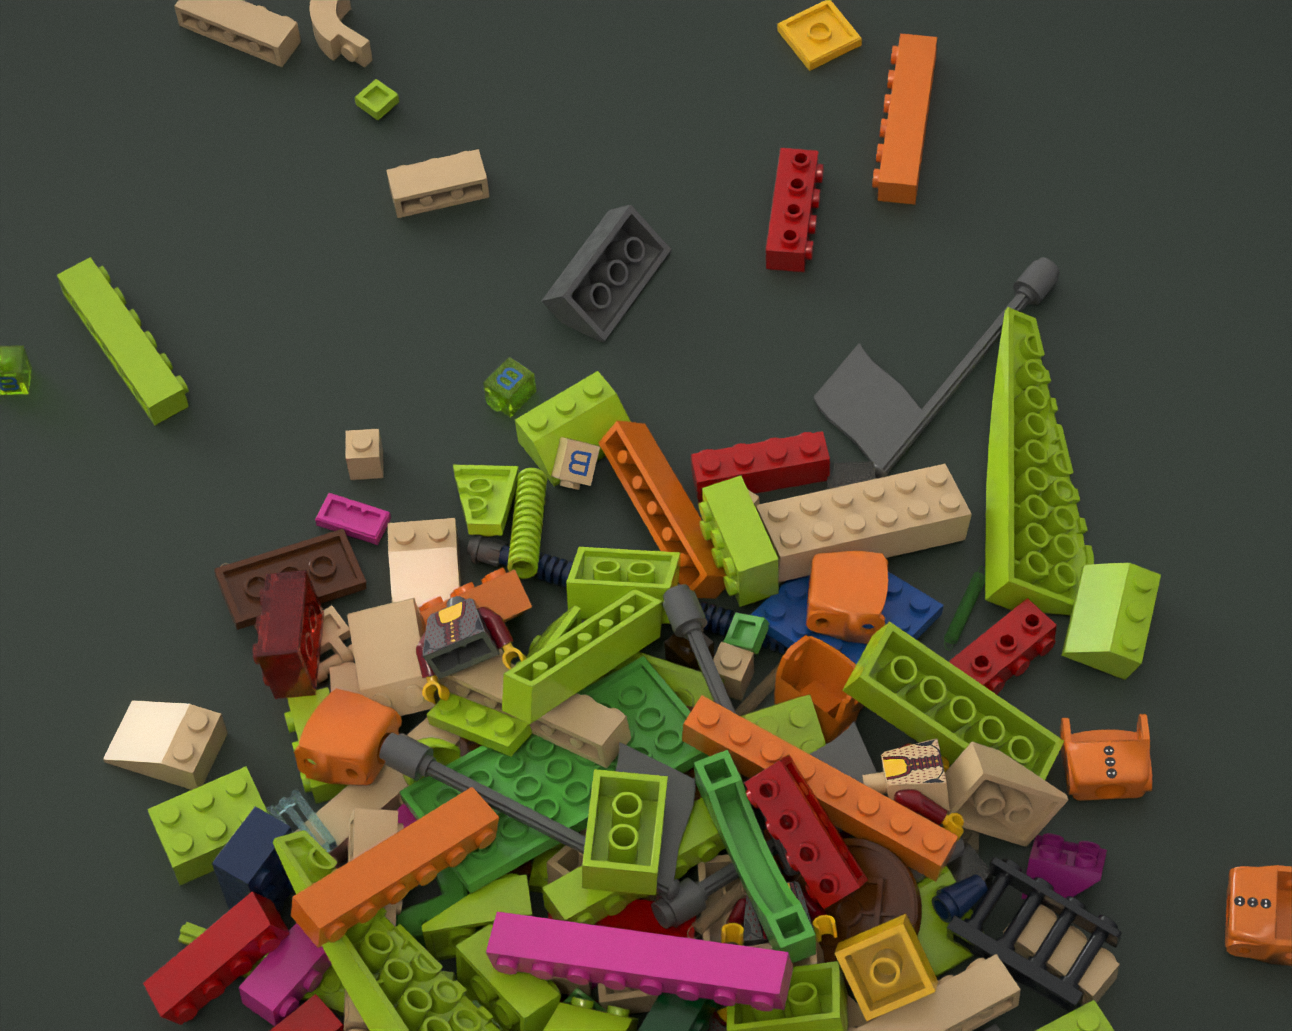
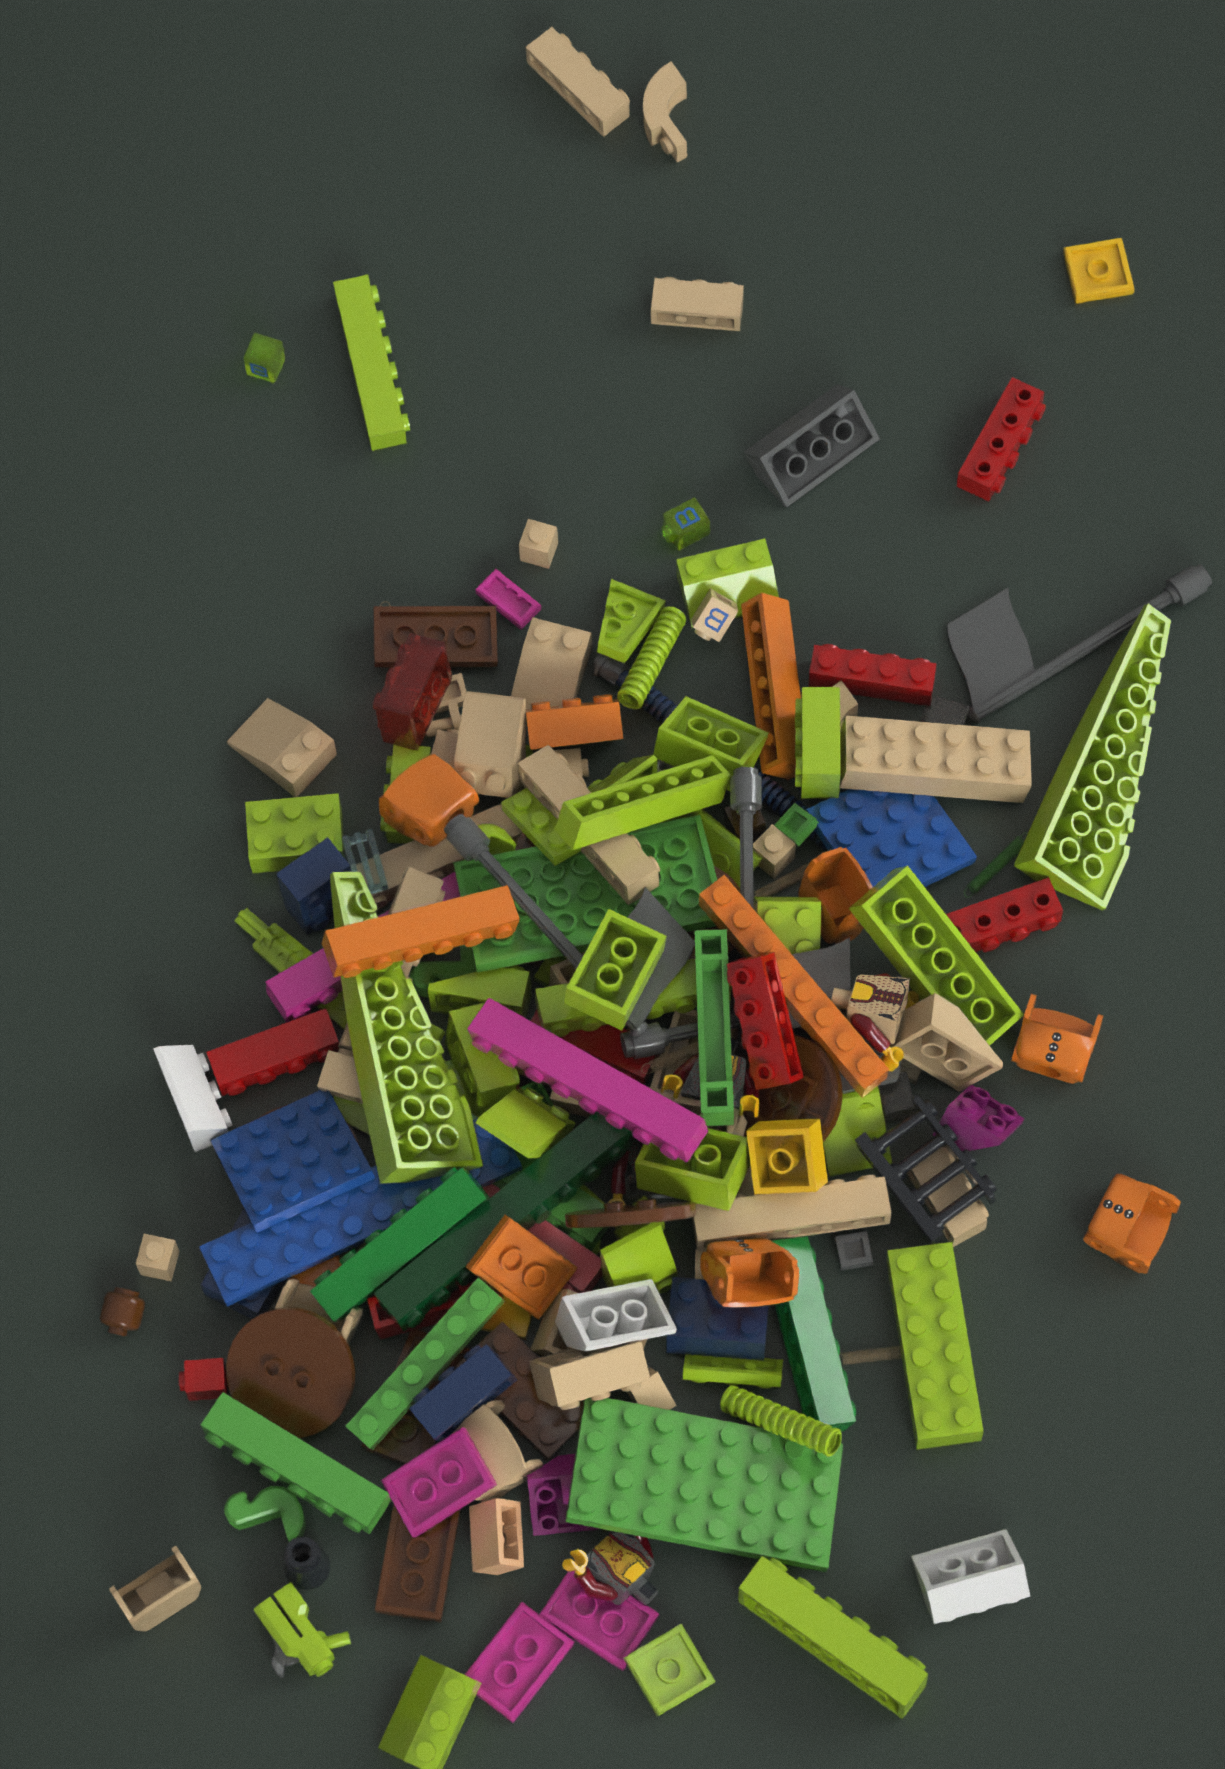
camera: 20 degrees right, 10 degrees up
(216, 958) = (257, 950): red brick -> none
(376, 99) = (674, 201): lime plate -> none
(460, 639) = (548, 750): torso -> none
(846, 594) = (891, 822): orange piece -> none
(907, 119) = (1140, 384): orange brick -> none
(958, 897) = (876, 1117): dark blue cone -> none
(1111, 617) = (1114, 919): lime slope -> none

